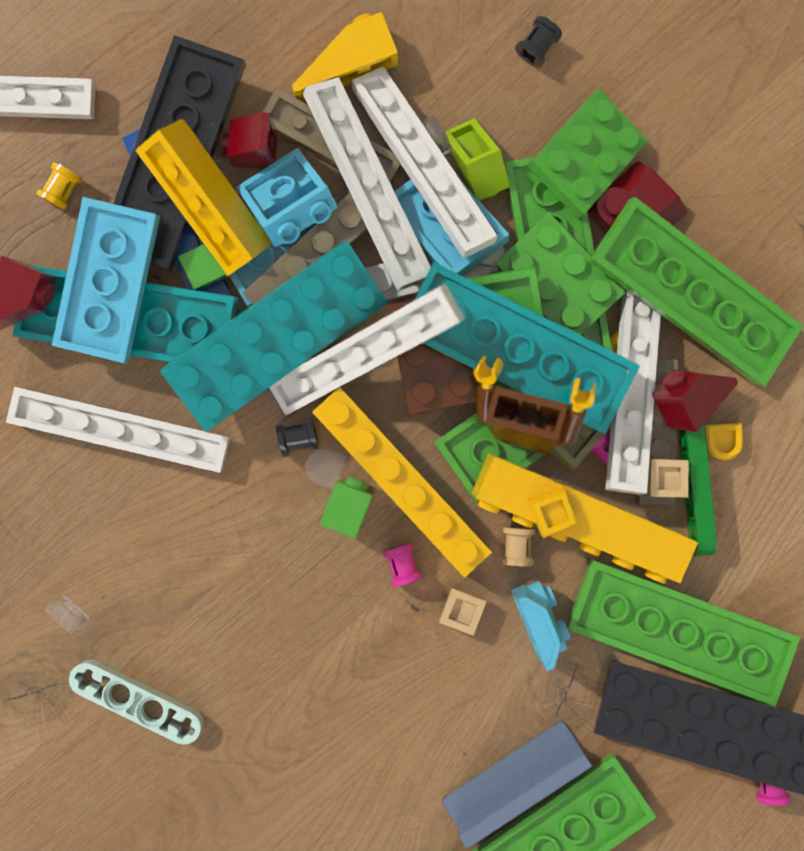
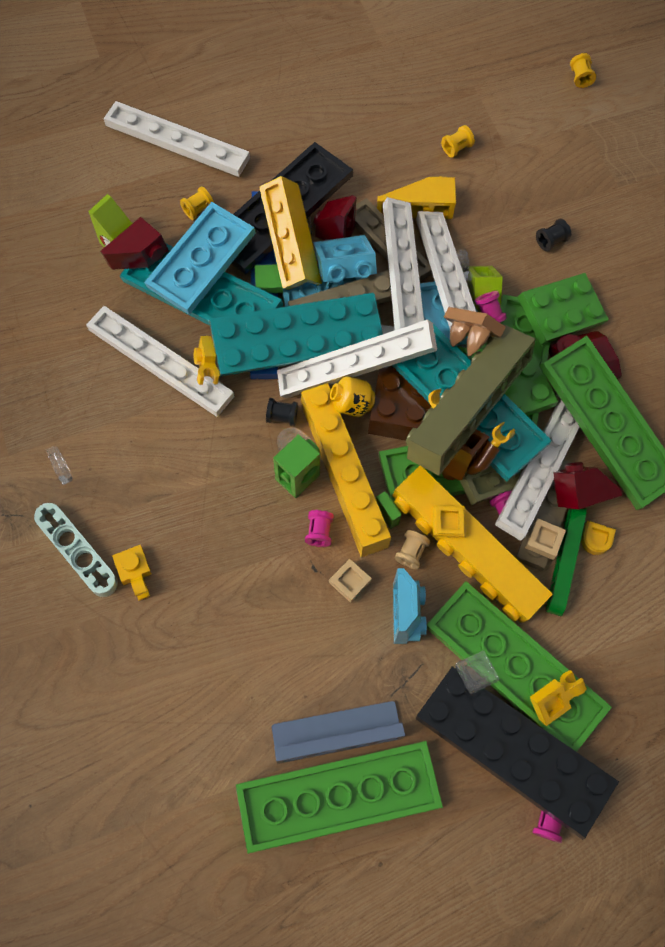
camera: 20 degrees right, 20 degrees down
(175, 412) = (205, 358): none -> yellow plate
(211, 695) = (132, 569): none -> yellow plate
(377, 395) = (352, 396): none -> yellow head
(473, 510) = (388, 510): none -> bright green tile
(499, 197) = (490, 305): none -> dark pink bush
(507, 261) = (473, 324): none -> medium nougat tile
(529, 365) = (469, 400): none -> olive brick
(643, 663) = (477, 672): none -> clear tile
(739, 660) = (554, 697): none -> yellow plate

